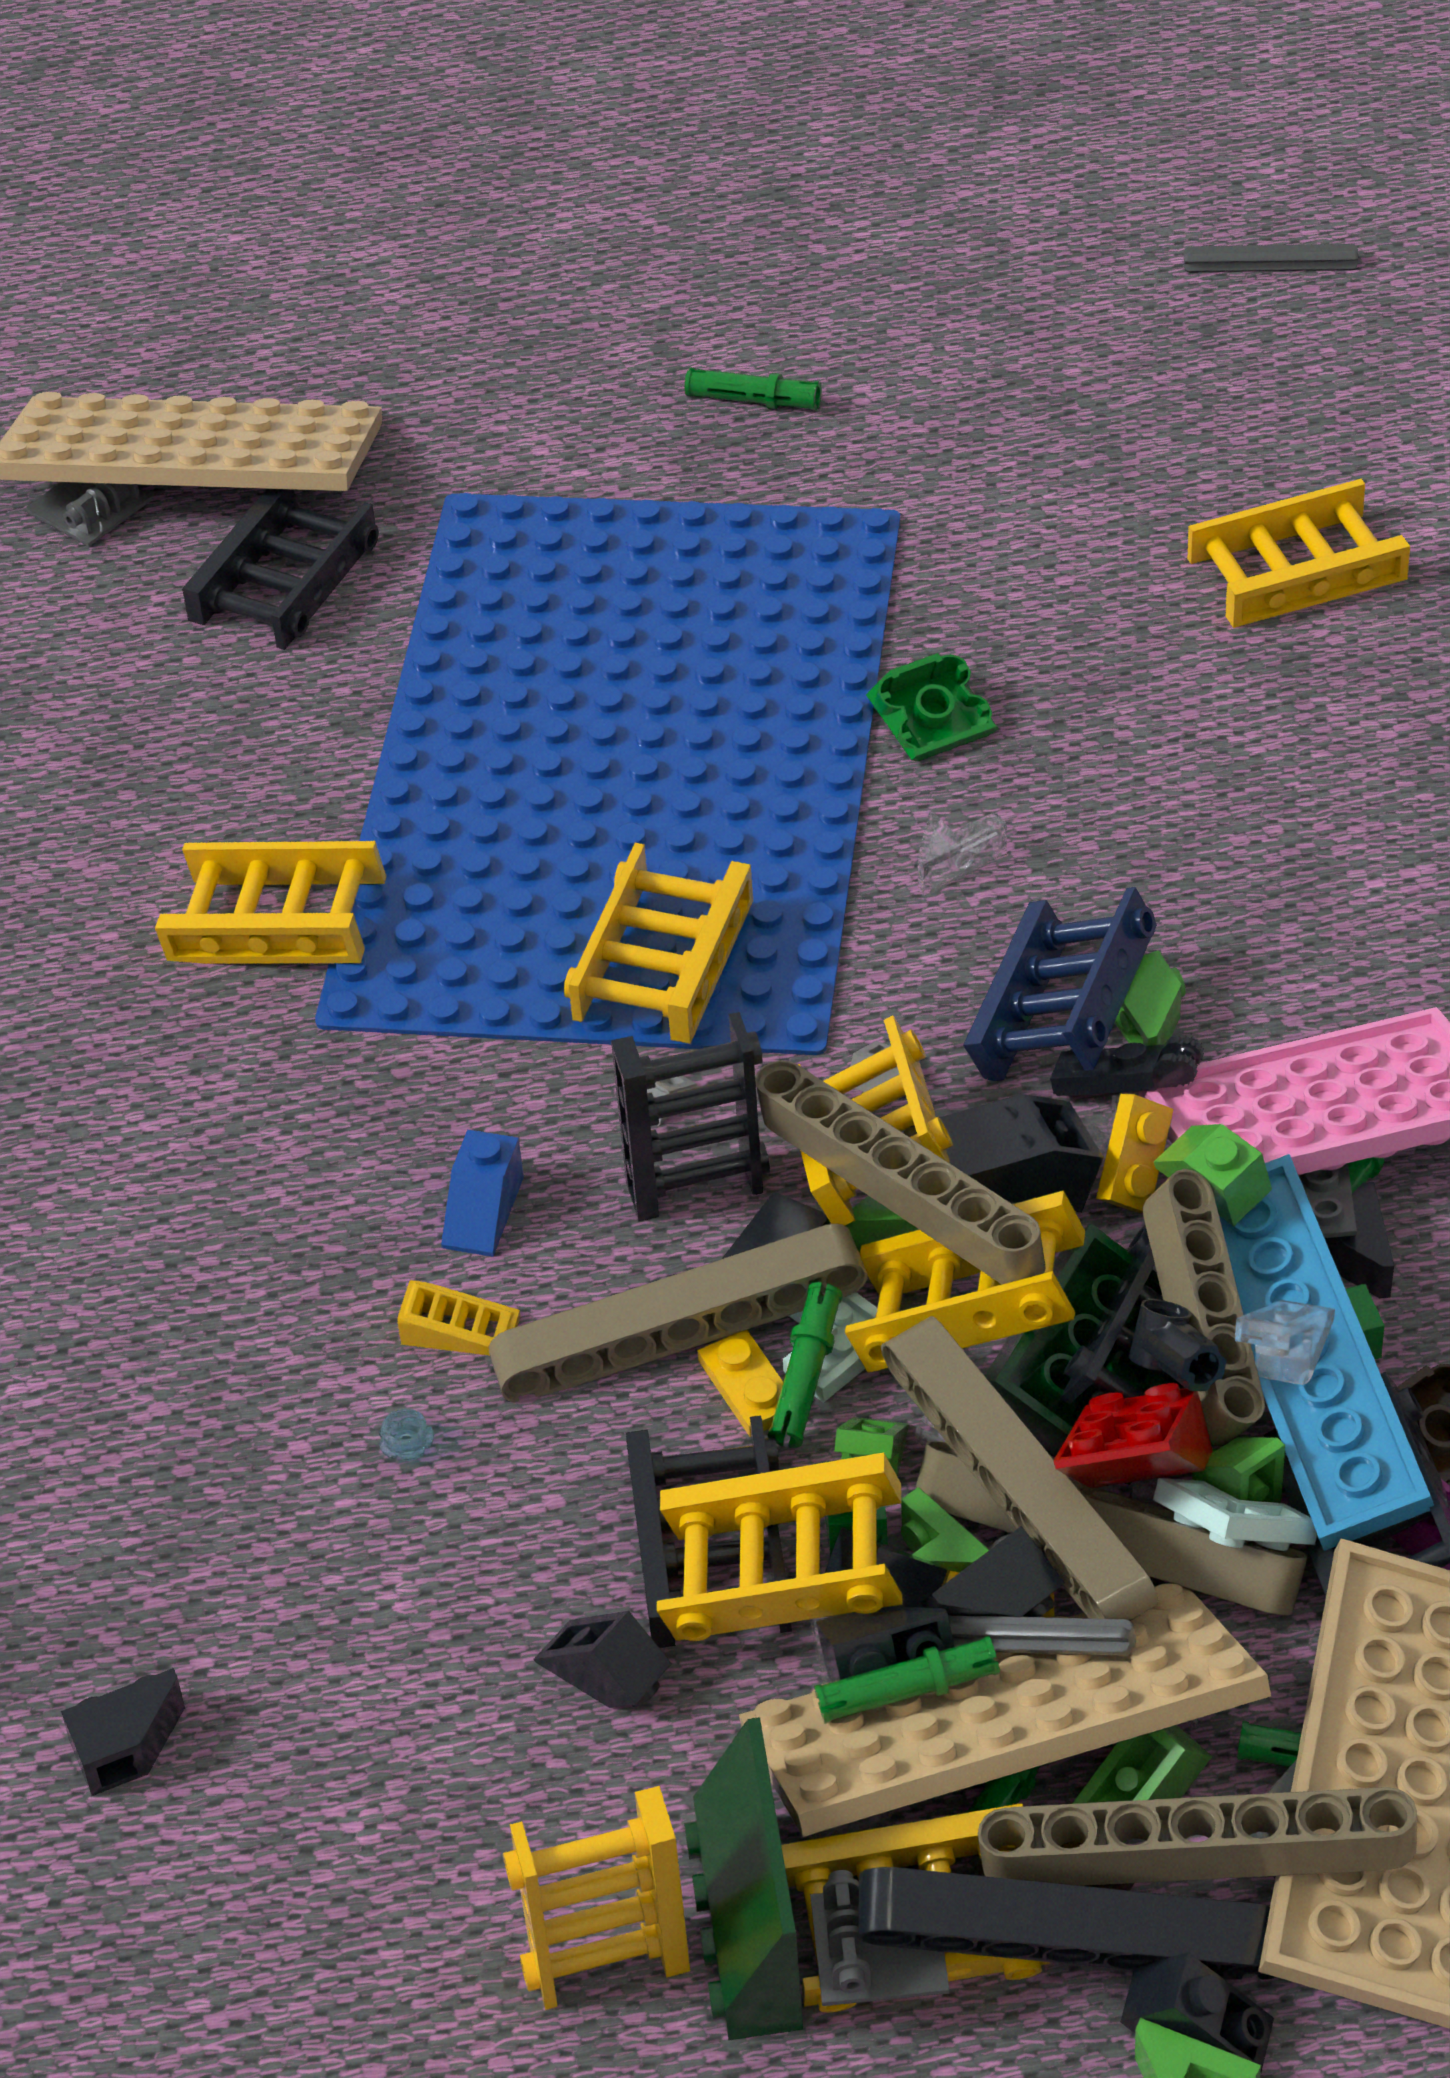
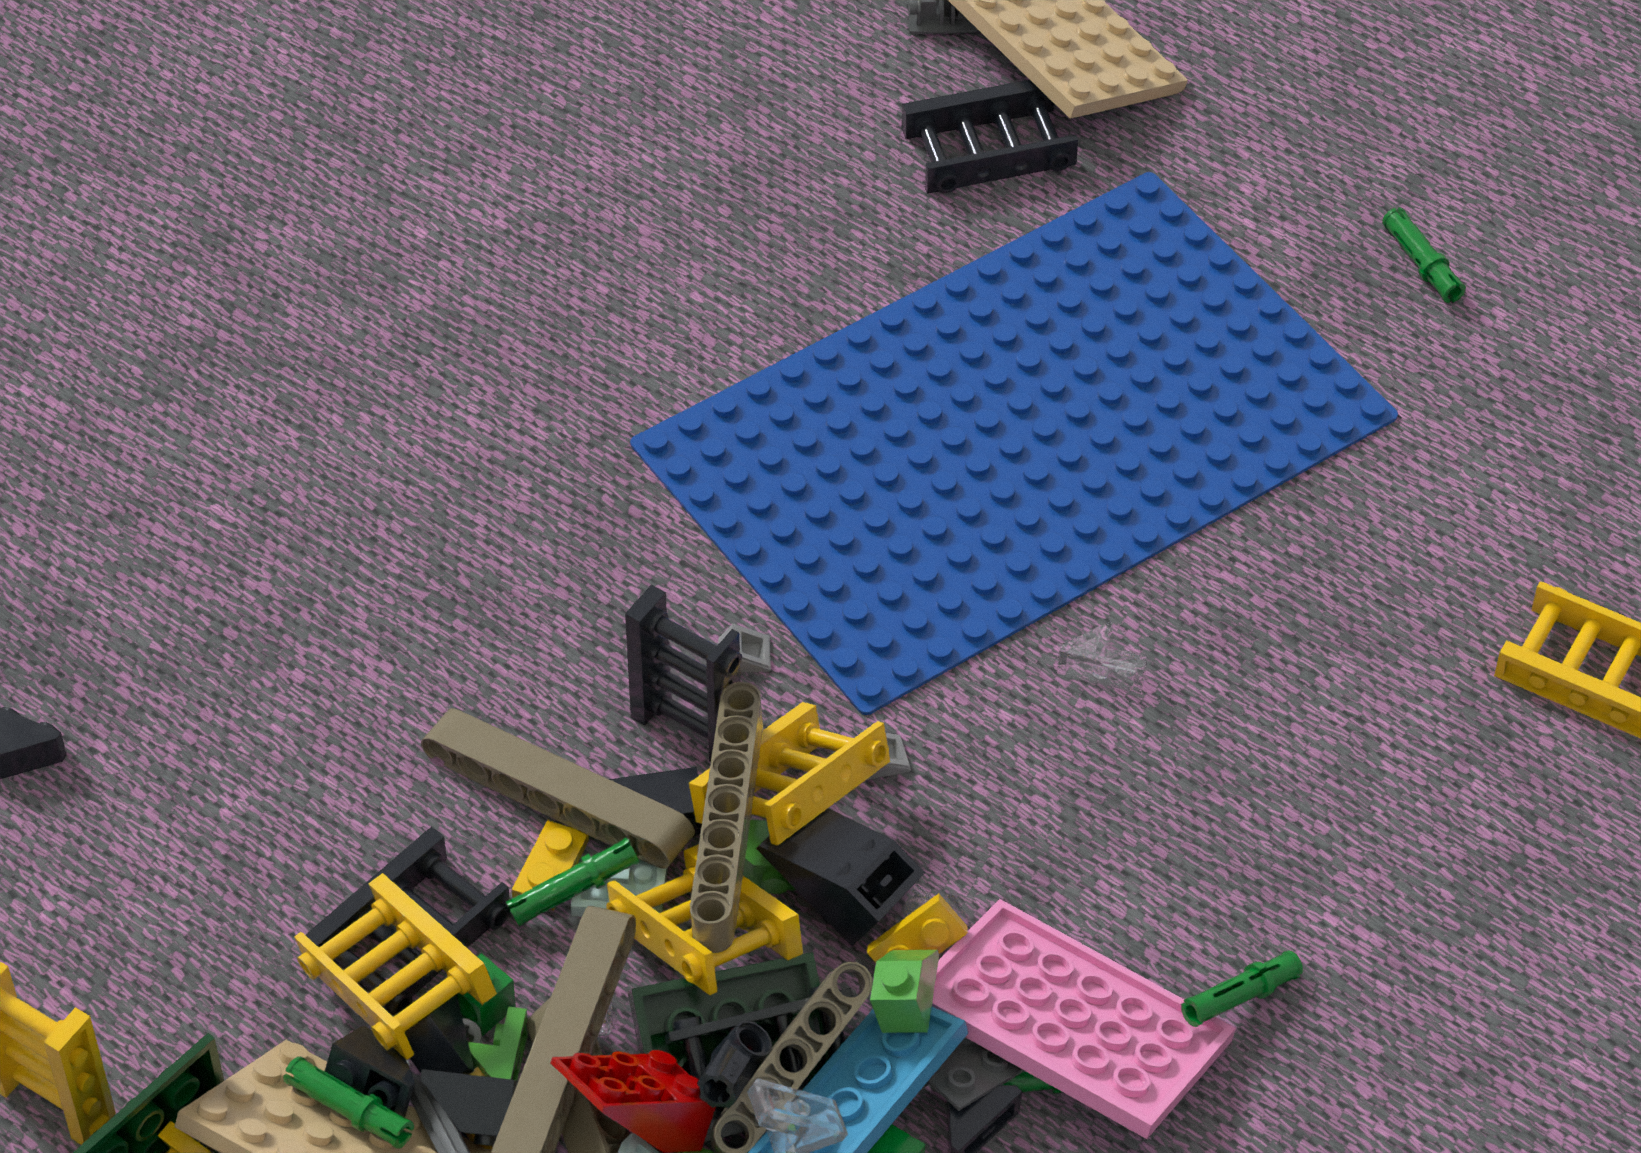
camera: 45 degrees right, 5 degrees up
(271, 937) = (671, 370): yellow fence -> none
(405, 1423) = (344, 711): clear light blue plate -> none
(441, 1301) = (446, 658): yellow slope -> none
(481, 1192) = (565, 620): blue slope -> none
(606, 1659) = (262, 943): black slope -> none
(696, 968) = (859, 595): yellow fence -> none
(872, 1436) = (539, 960): bright green slope -> none
(932, 706) = (1225, 559): green slope -> none
(1034, 960) = (1021, 777): dark blue fence -> none
(1129, 1068) = (996, 885): black hinge -> none
(1152, 1002) = (1069, 860): bright green slope -> none
(1403, 964) = (1256, 981): none -> green pin

